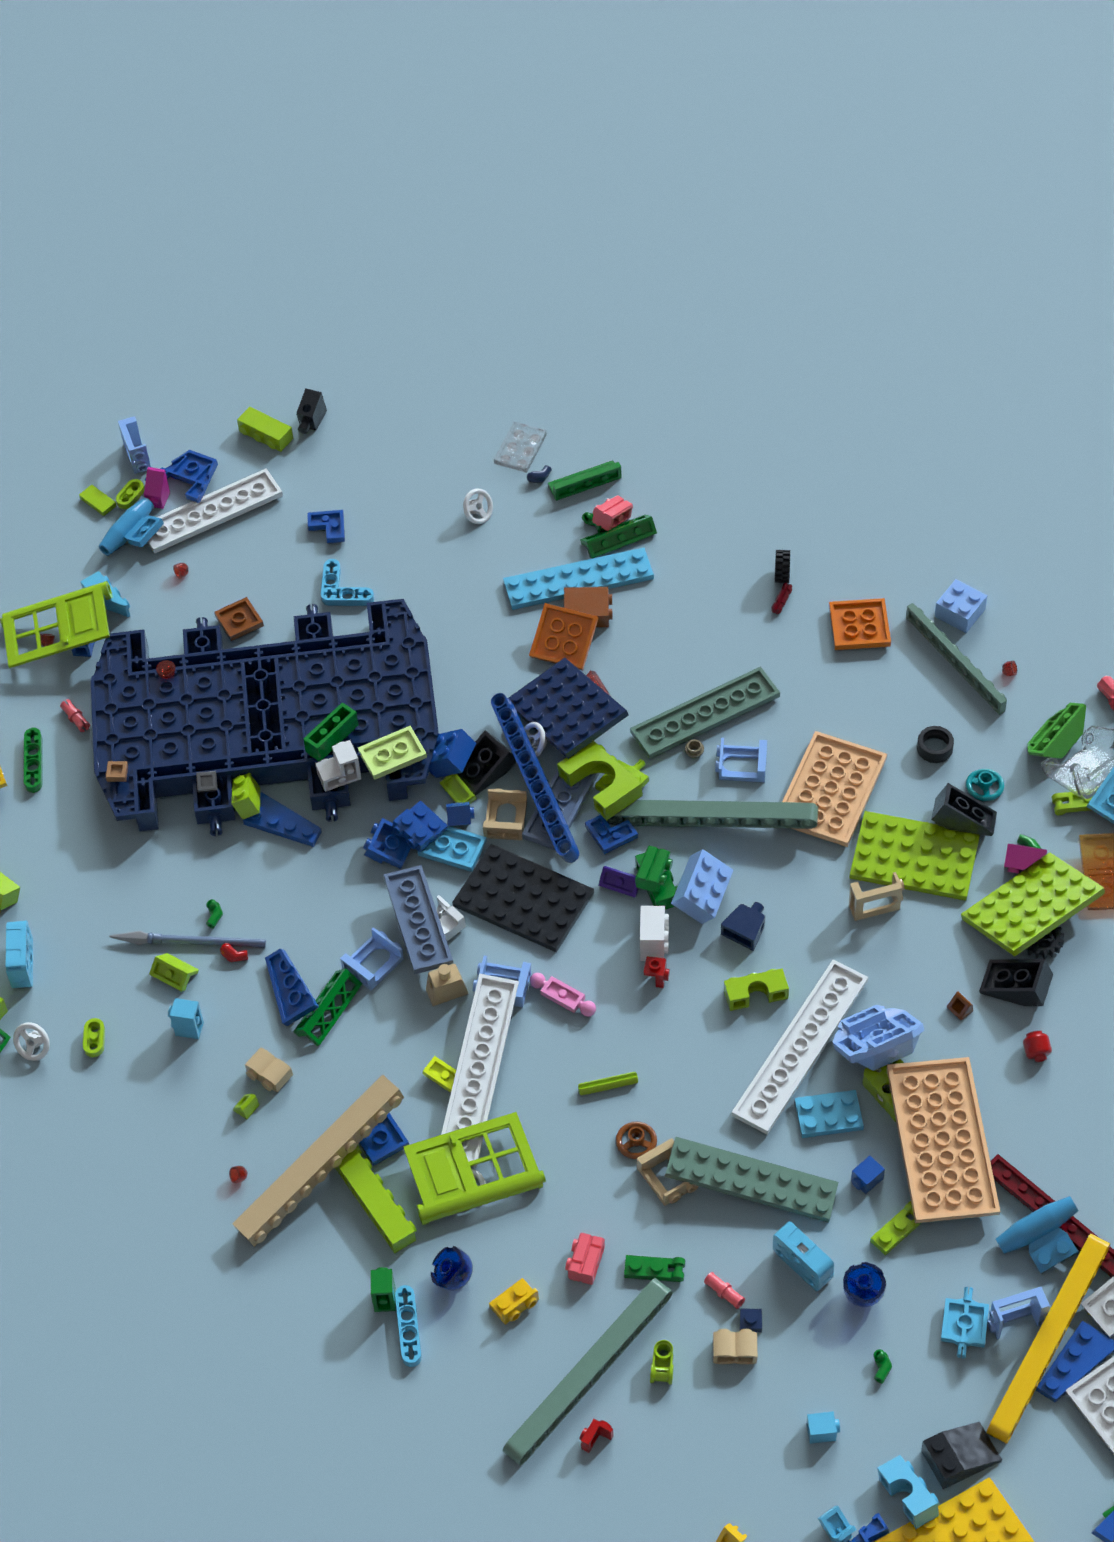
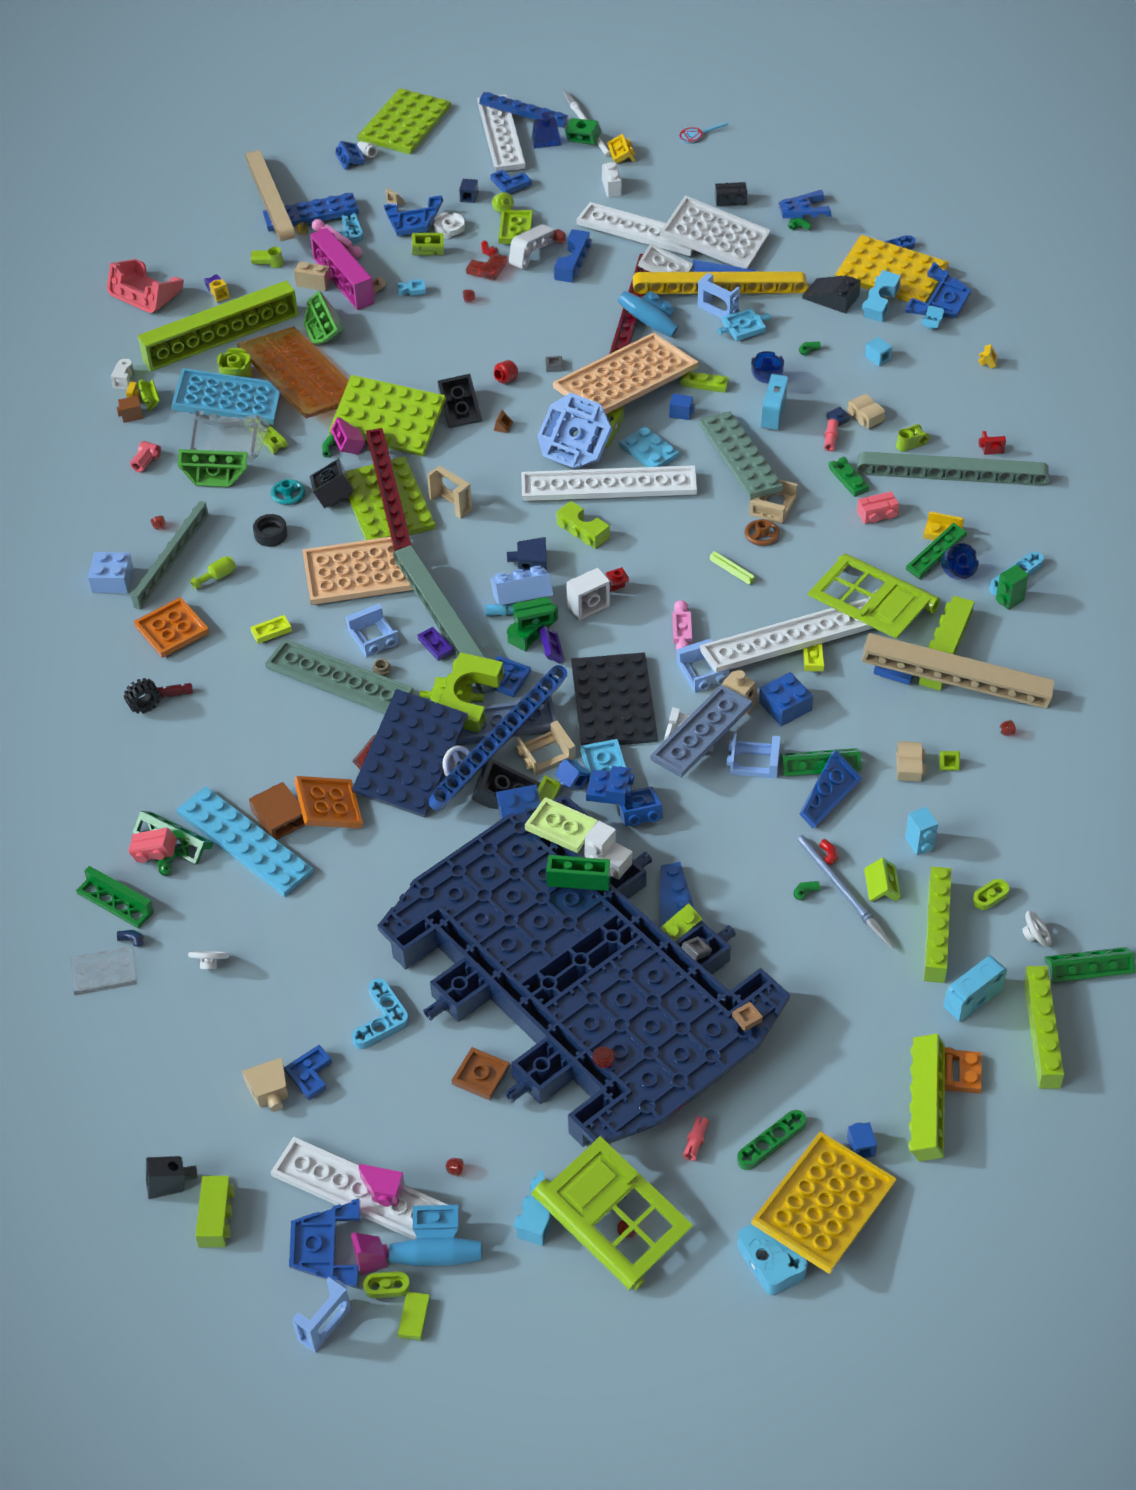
camera: 125 degrees left, 5 degrees down
(100, 977) = (937, 924): none -> lime brick
(196, 514) = (382, 1184): none -> dark pink slope
(337, 495) = (267, 1084): none -> tan torso
(411, 1019) = (785, 699): none -> blue brick
(488, 1269) = (933, 552): none -> green tile
(697, 794) = (435, 643): none -> dark purple plate
(802, 691) = (271, 629): none -> neon yellow plate
(908, 682) = (216, 570): none -> lime piece
(916, 849) = (388, 489): none -> dark red plate
(1027, 1104) = (554, 363): none -> flat silver tile

